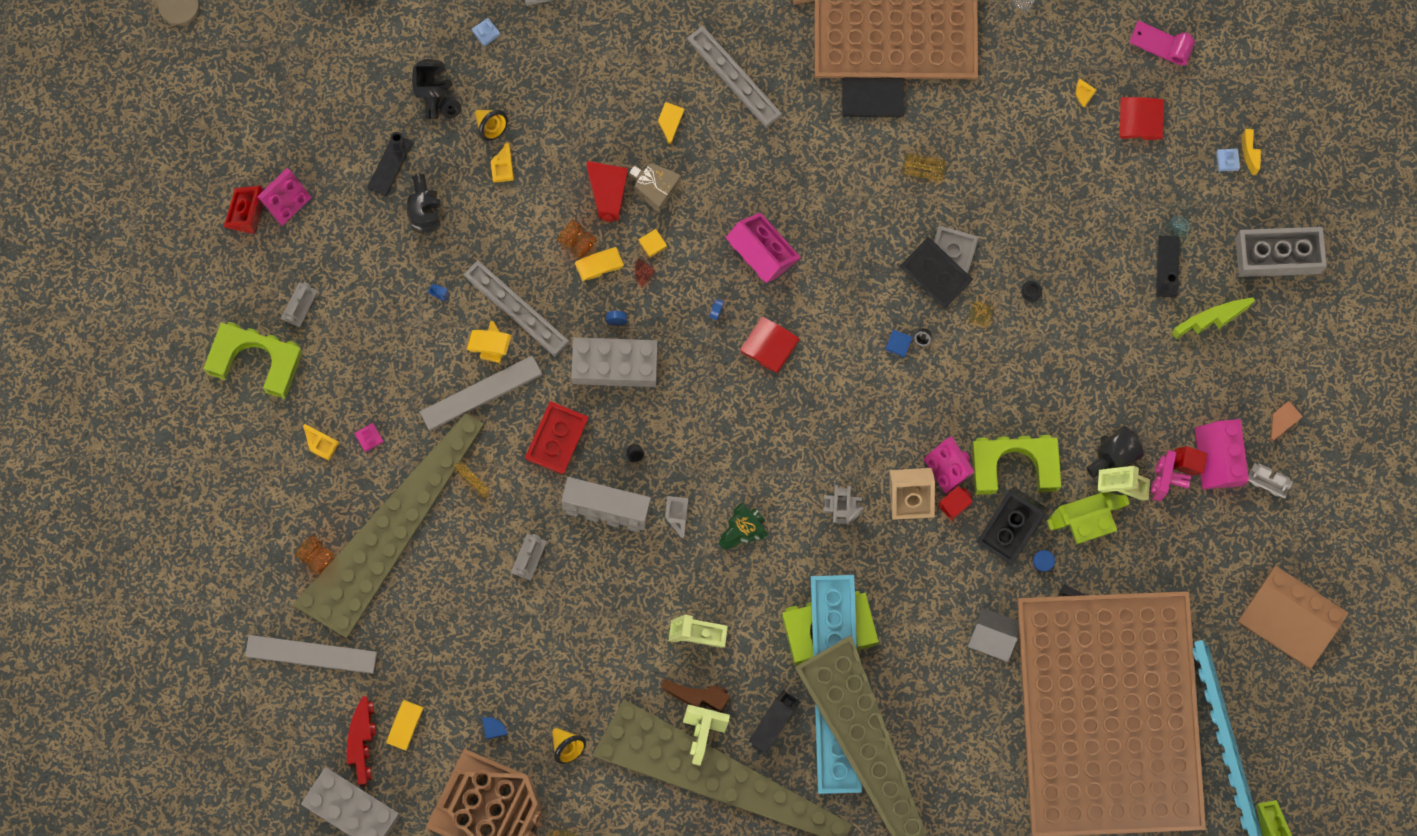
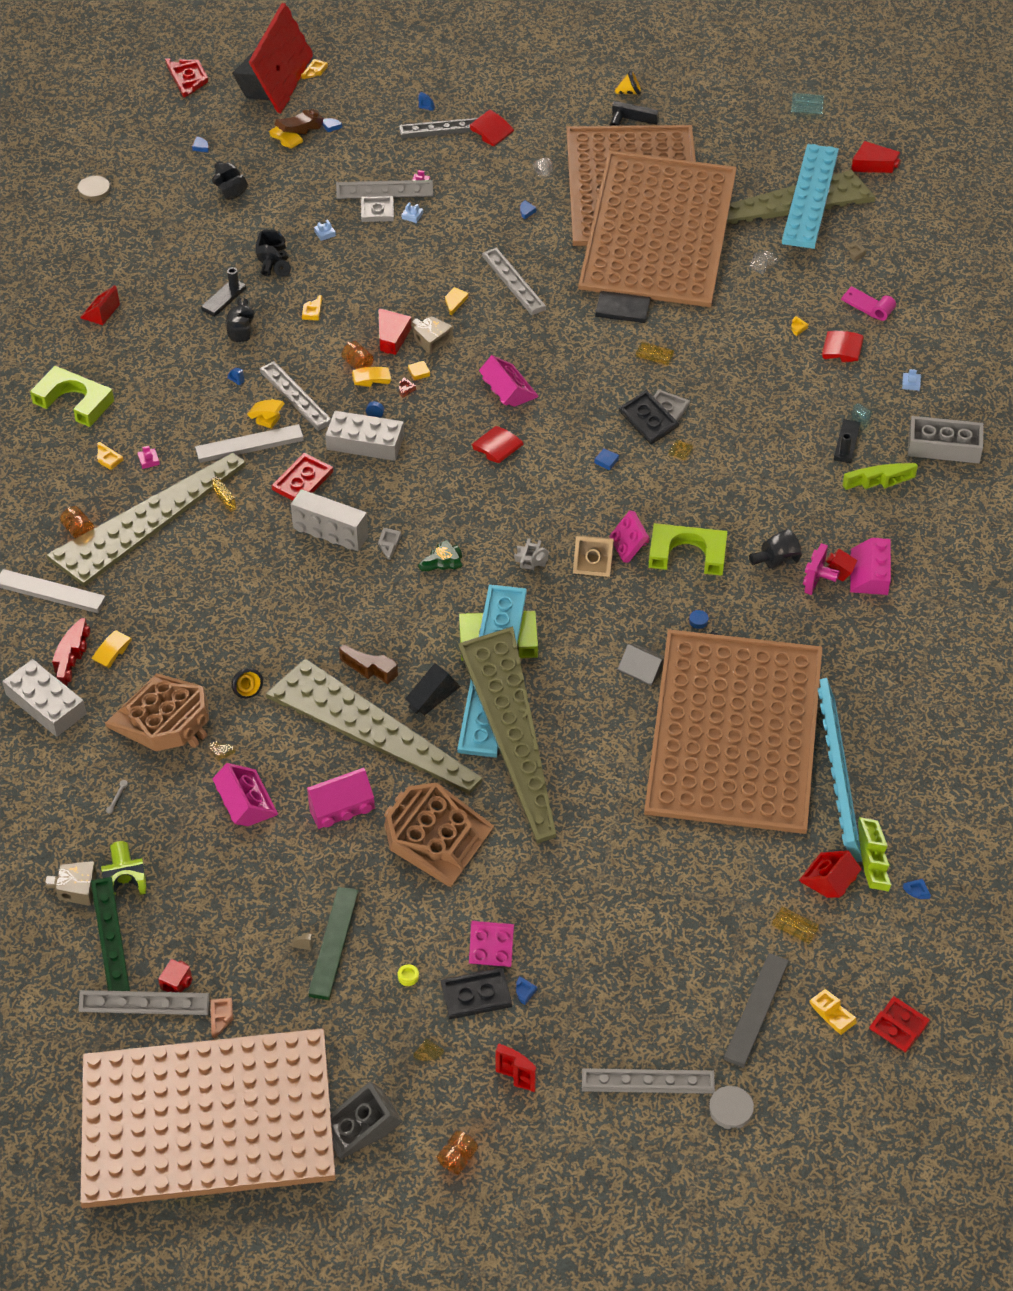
camera: 15 degrees right, 25 degrees down
(284, 196) = (133, 299): dark pink plate -> none
(299, 304) = (122, 369): light grey hinge -> none
(491, 123) = (312, 280): yellow hat -> none
(493, 728) = (187, 663): blue tile -> none
(529, 556) = (255, 551): light grey hinge -> none
(635, 452) = (364, 500): black hinge -> none
(690, 630) = (382, 618): yellowish green bracket -> none
(703, 720) = (368, 682): yellowish green bracket -> none
(717, 309) = (459, 415): blue tile -> none
(928, 338) = (625, 455): black hinge -> none
(955, 502) = (629, 566): red brick -> none
(1012, 525) = (676, 587): black slope -> none
(1031, 291) = (727, 440): black plate -> none
(1089, 516) = (745, 593): lime plate -> none
(1125, 481) = (779, 563): yellowish green bracket -> none
(1251, 155) = (931, 376): yellow slope -> none
(1260, 477) = (917, 593): light grey hinge -> none
(1283, 420) = (931, 553): nougat tile -> none
(1292, 617) = (916, 687): medium nougat slope -> none

